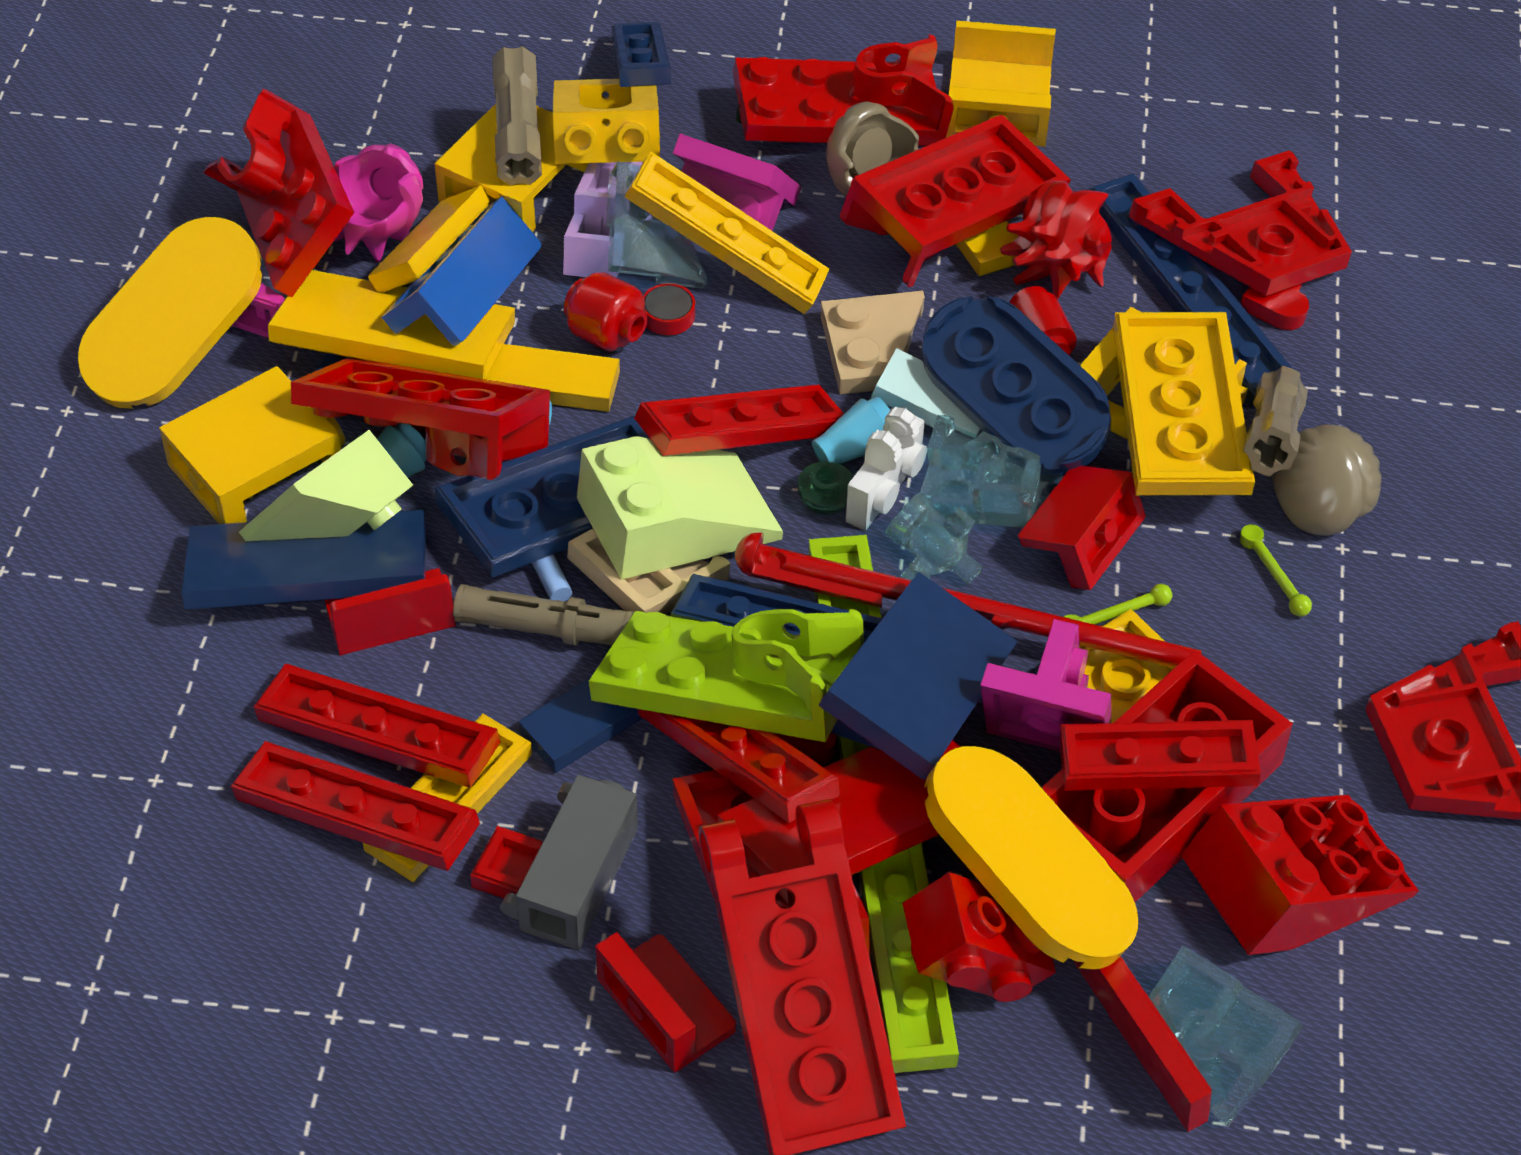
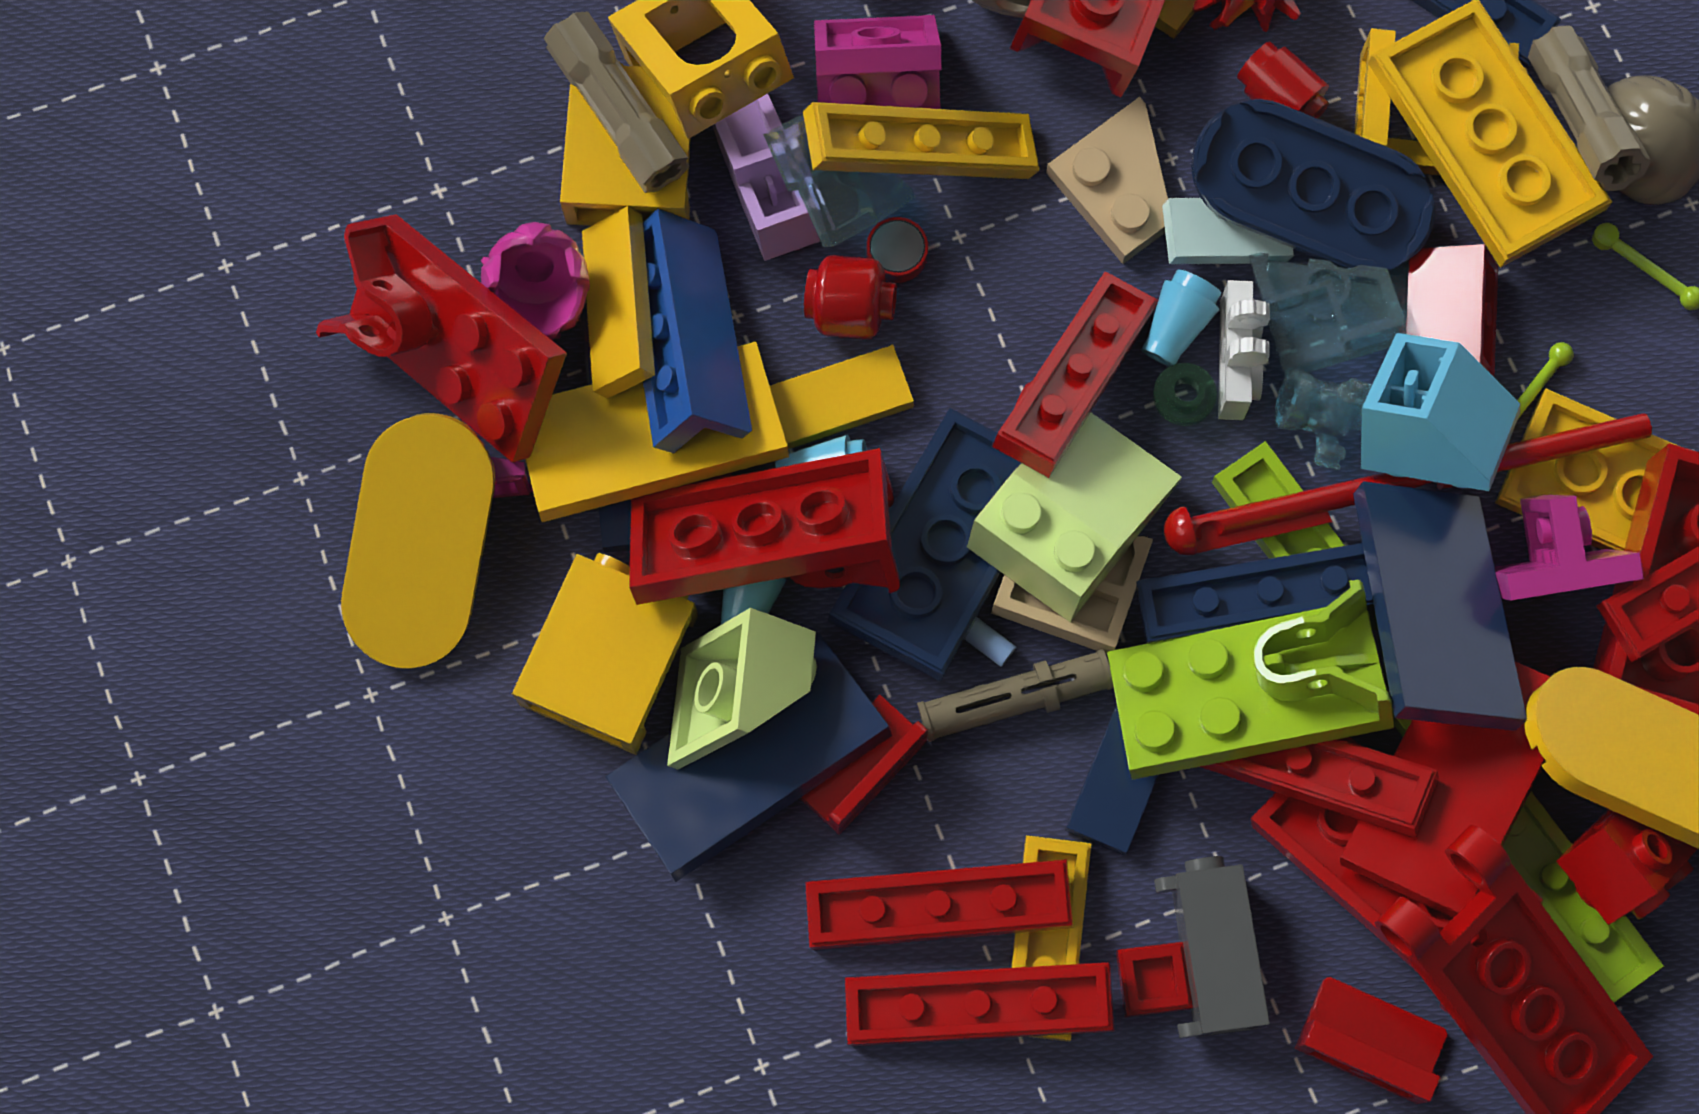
camera: 25 degrees left, 25 degrees up
(1009, 556) = (1436, 415): none -> medium azure slope

